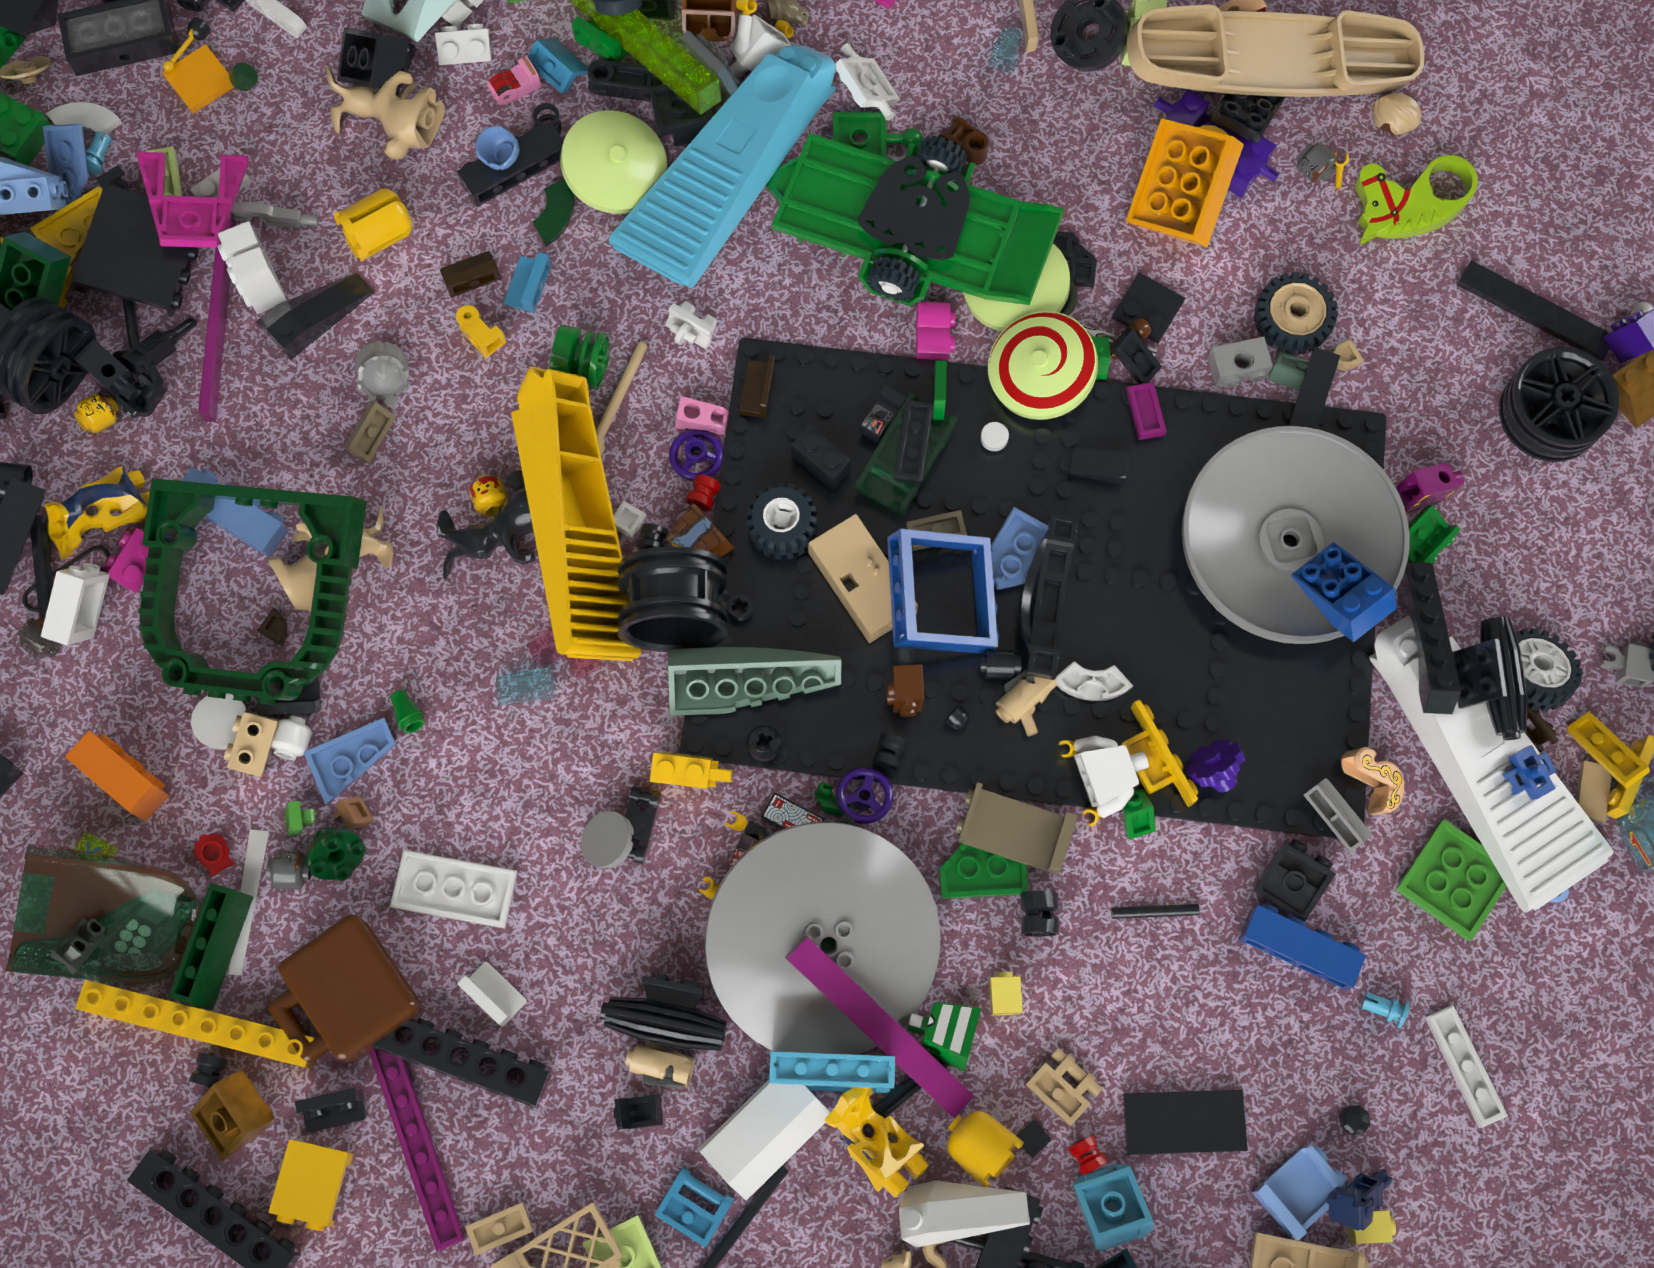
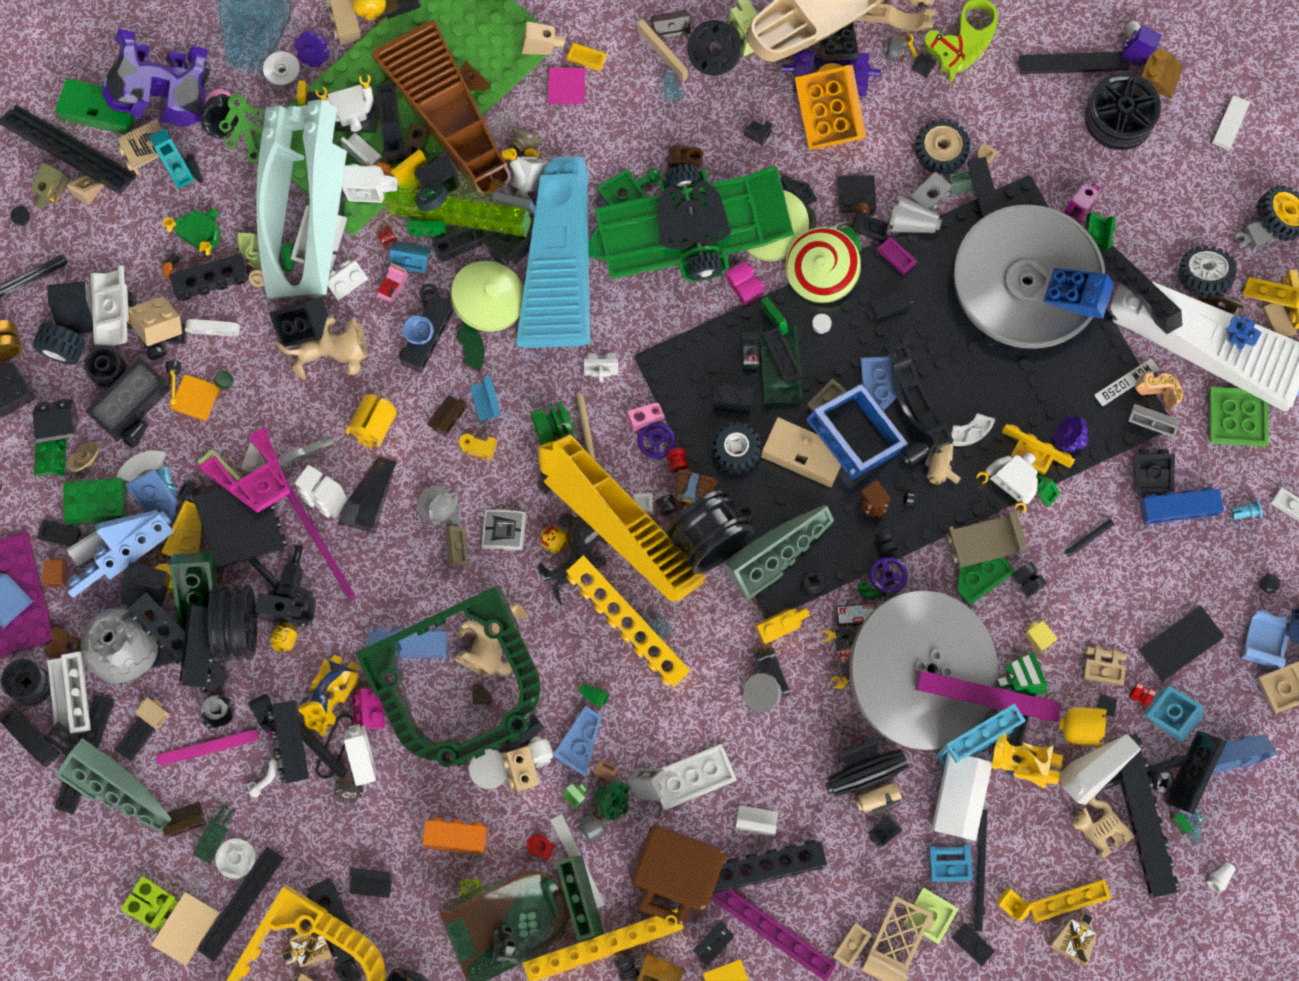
camera: 30 degrees left, 0 degrees up
(101, 77) = (135, 433): none -> black cone
(389, 860) = (646, 783): none -> light grey panel
(439, 447) = (504, 529): none -> slope
(512, 658) = (678, 670): none -> yellow brick
(544, 654) = (652, 603): clear pink tile -> none
(545, 23) = (386, 236): none -> clear red wheel
(757, 388) = (667, 379): dark brown panel -> none
(866, 82) = (605, 157): white plate -> none
(1077, 163) = (758, 132): none -> black panel
(1196, 375) = (914, 218): none -> light grey cone
(1334, 744) = (1125, 382): none -> white sticker
(1340, 202) = (924, 65): none -> black tile
(1343, 128) = (904, 21): none -> tan piece
(1495, 676) = (1191, 289): black plate -> none

